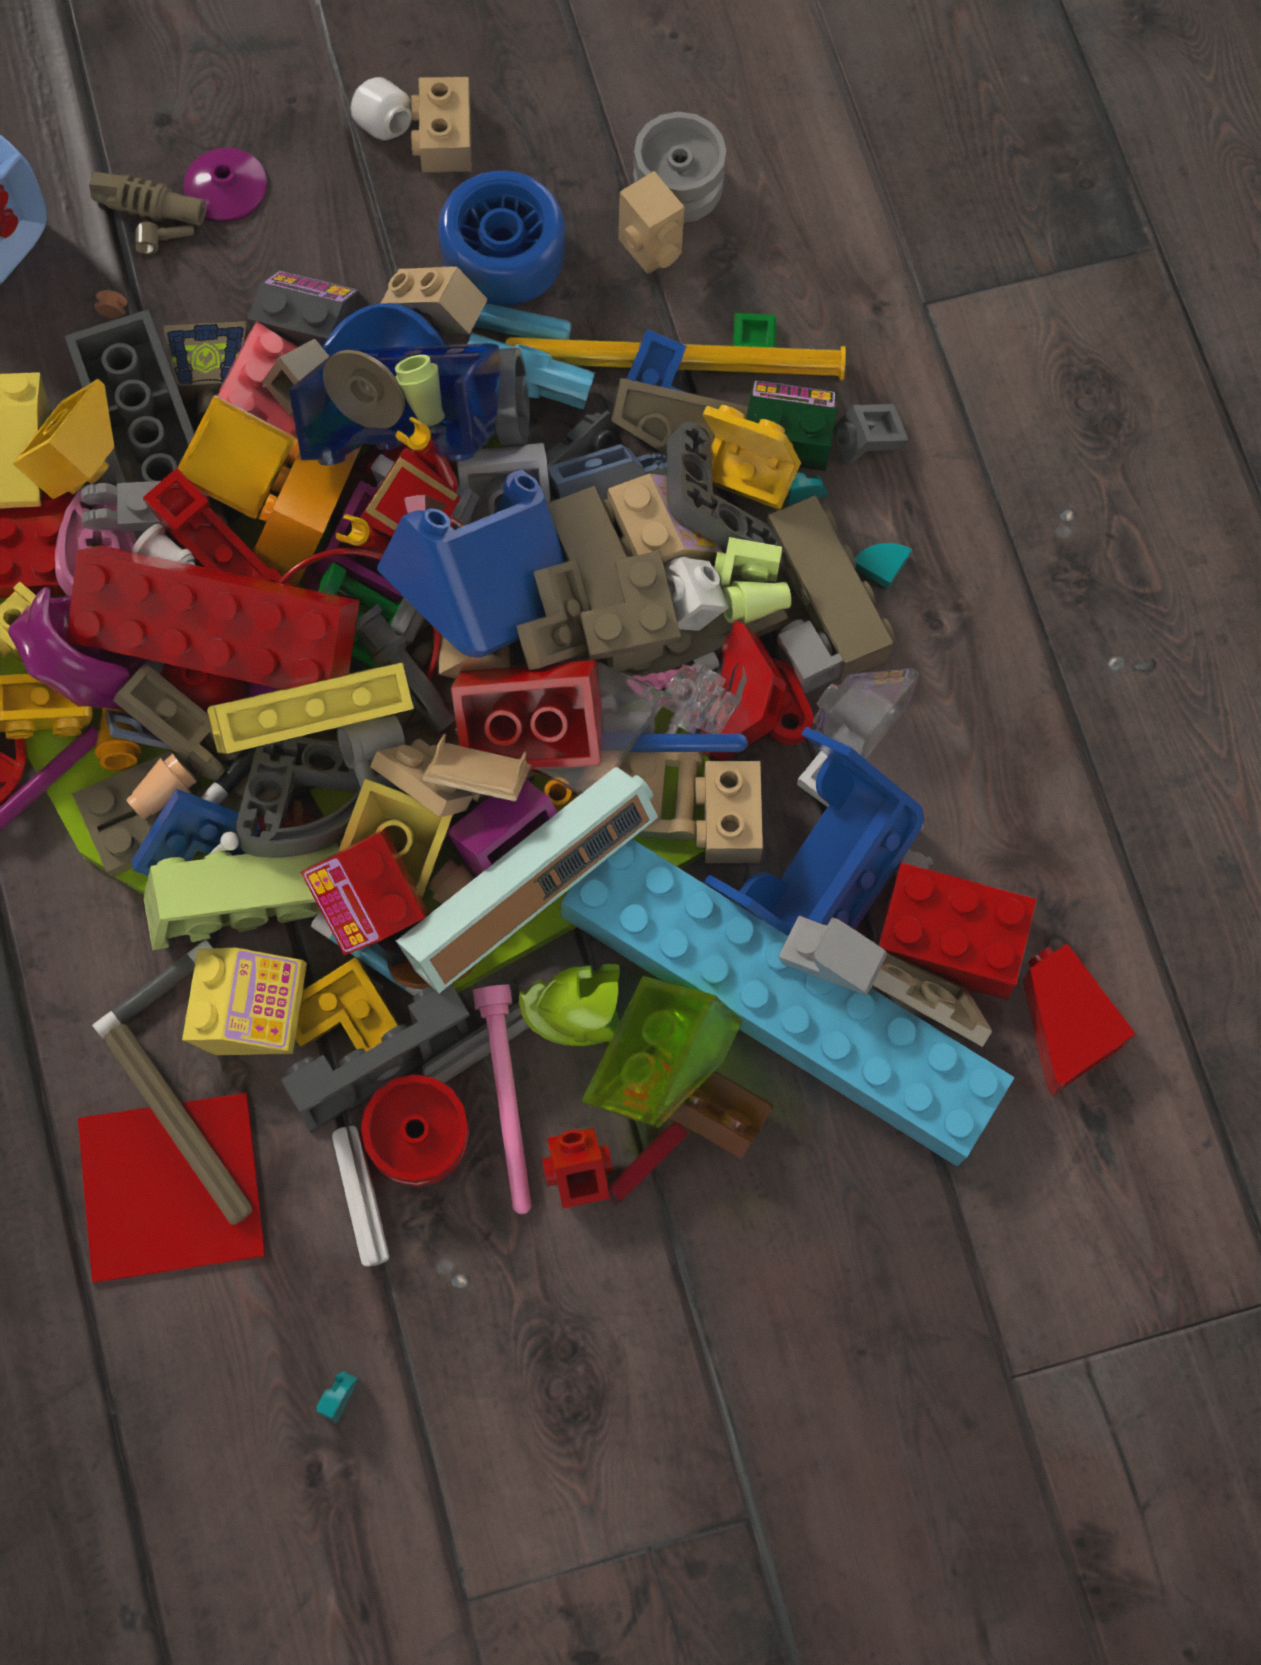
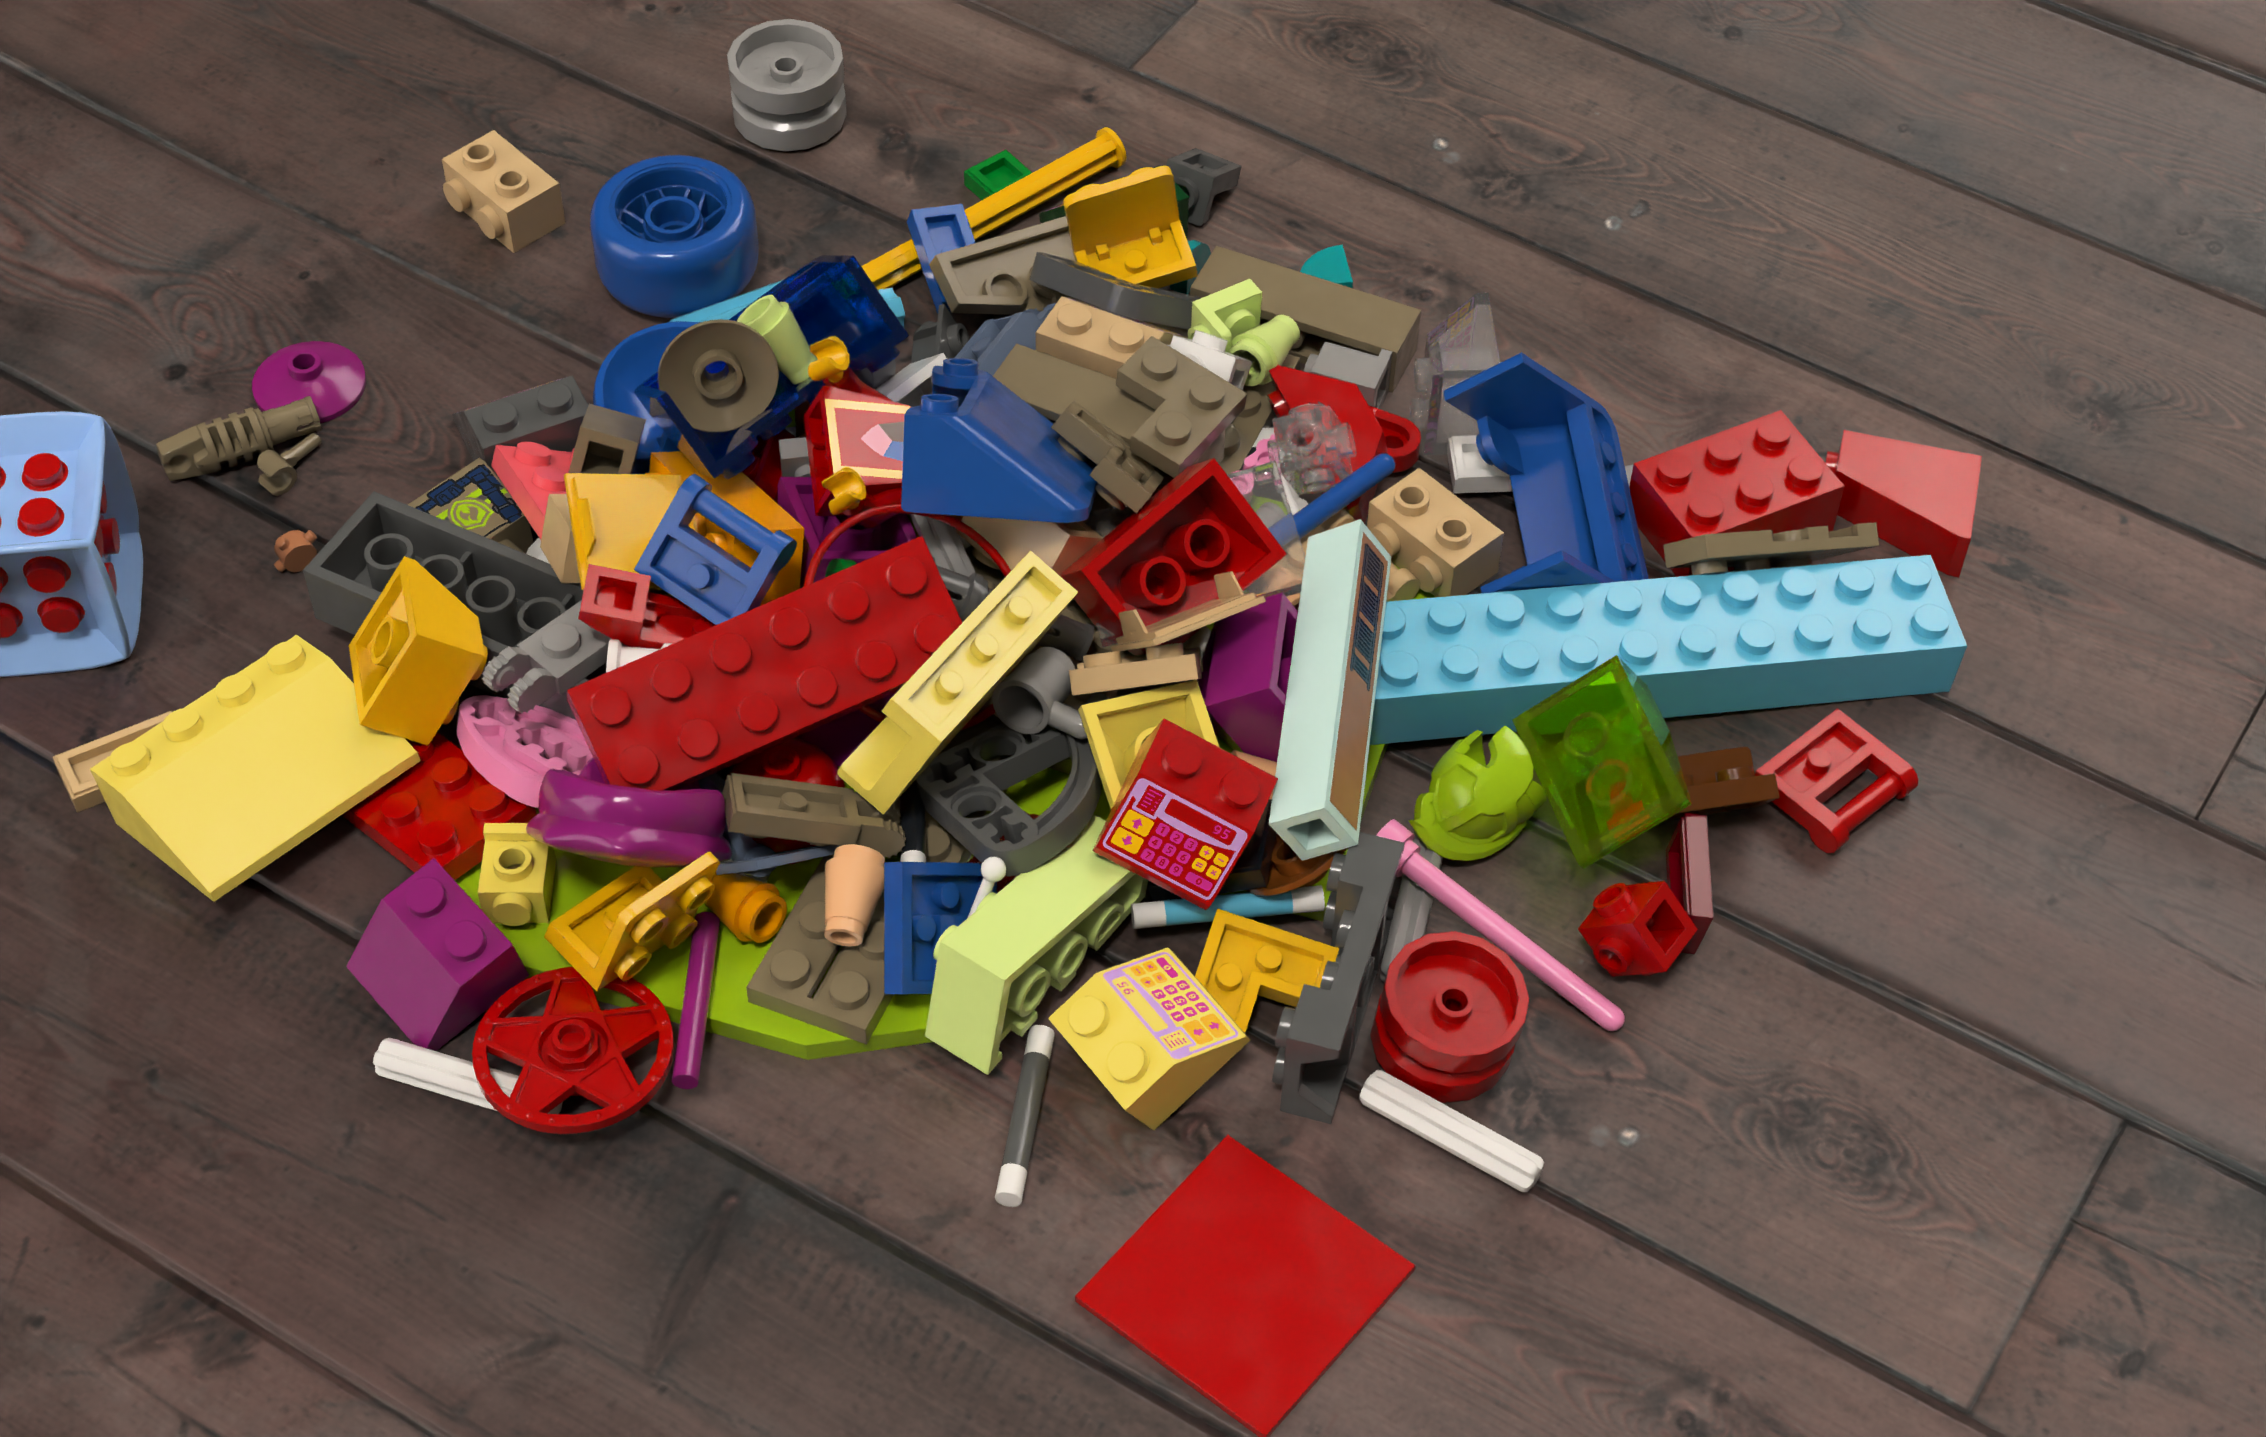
camera: 40 degrees left, 20 degrees down
(178, 1124) = (1193, 1211): dark tan axle -> none
(240, 520) = (701, 571): none -> blue plate
(334, 1400) = (1641, 1327): teal tile -> none
(381, 108) = (421, 215): white head -> none
(438, 295) = (669, 294): tan brick -> none
(651, 223) = (814, 136): tan brick -> none
(810, 1152) = (1826, 762): none -> red plate
(833, 954) = (1689, 544): light grey slope -> none

